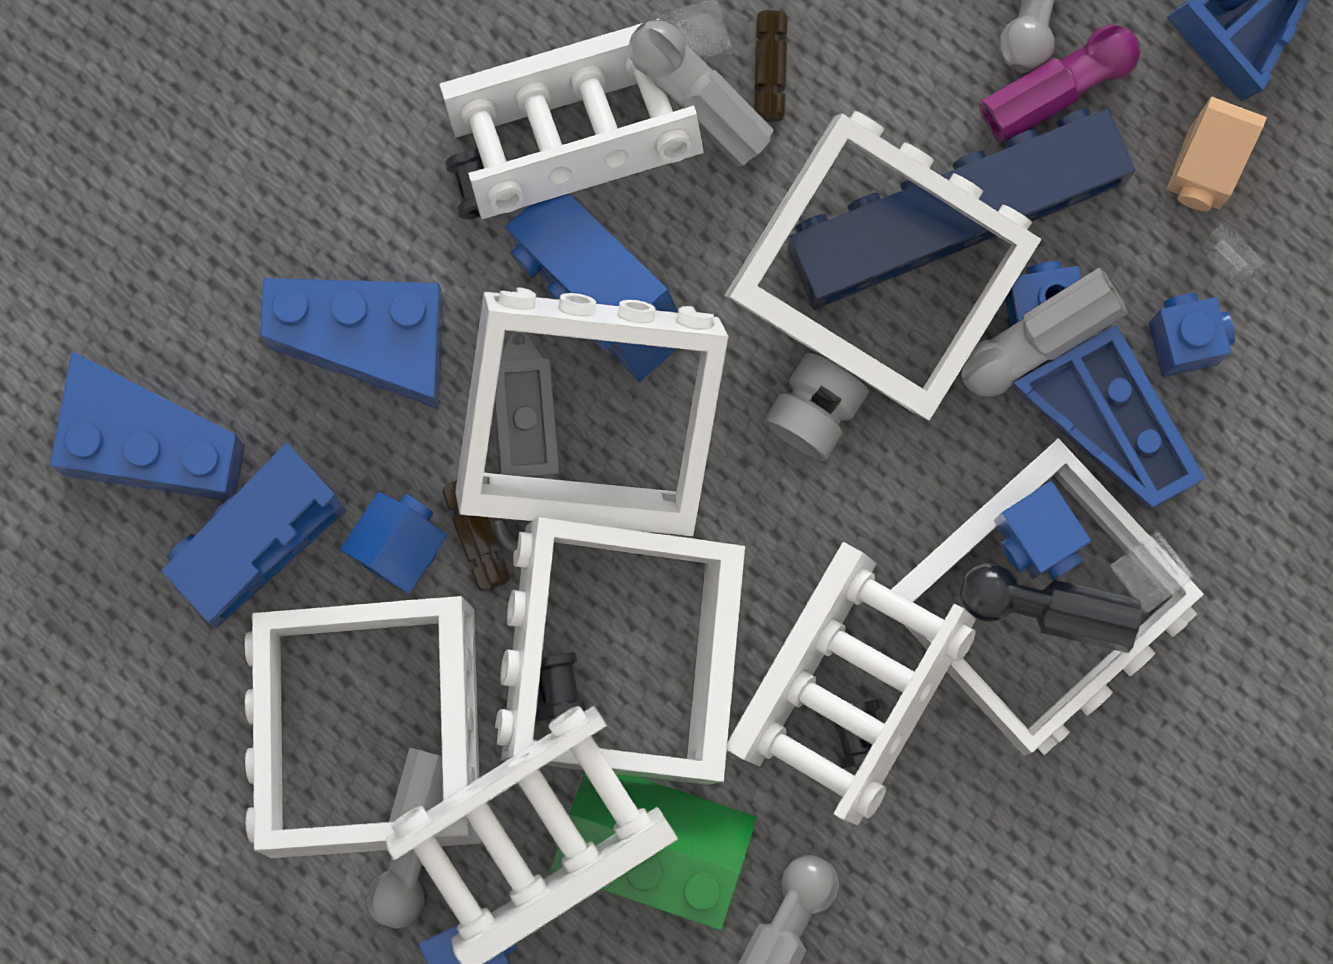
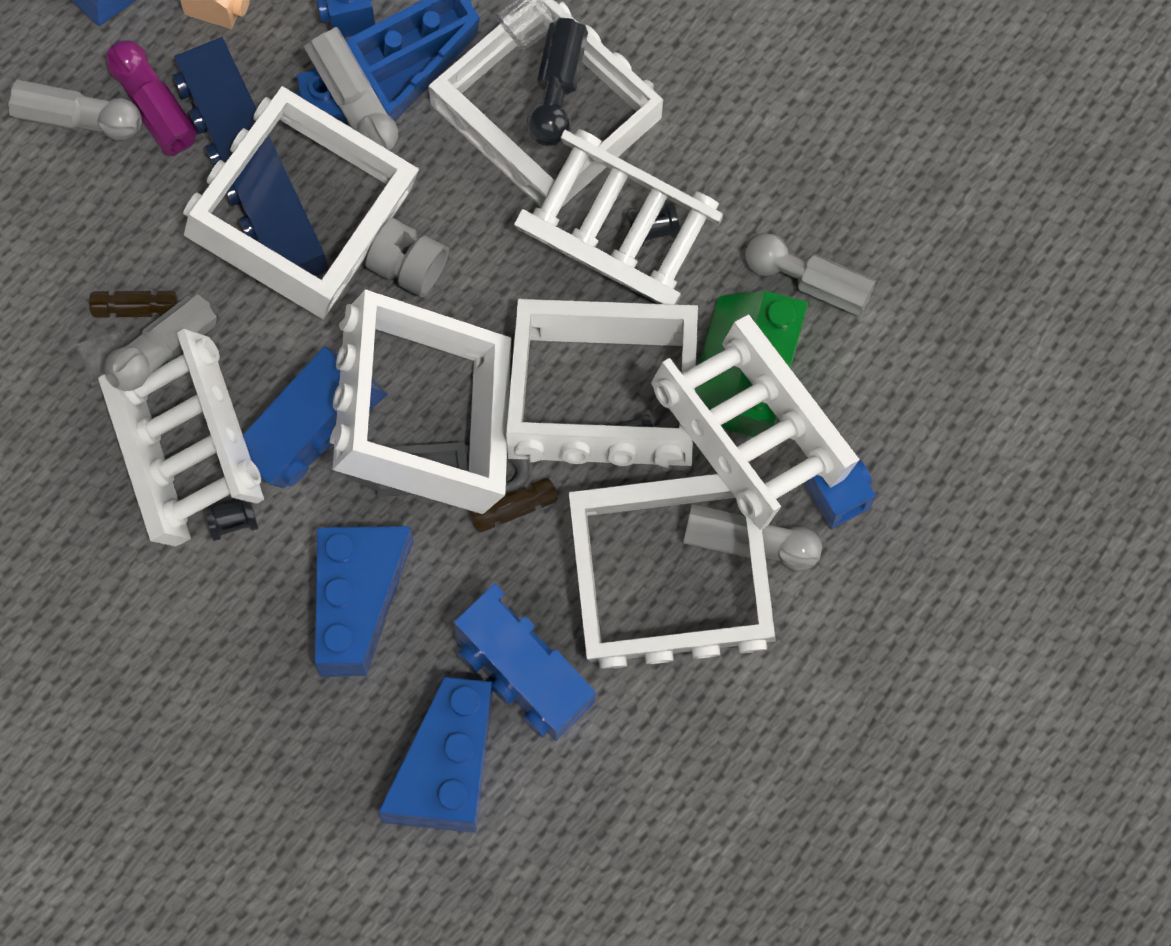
camera: 90 degrees left, 10 degrees down
(395, 540) = (522, 559): blue brick -> none
(1042, 534) = (503, 86): blue brick -> none

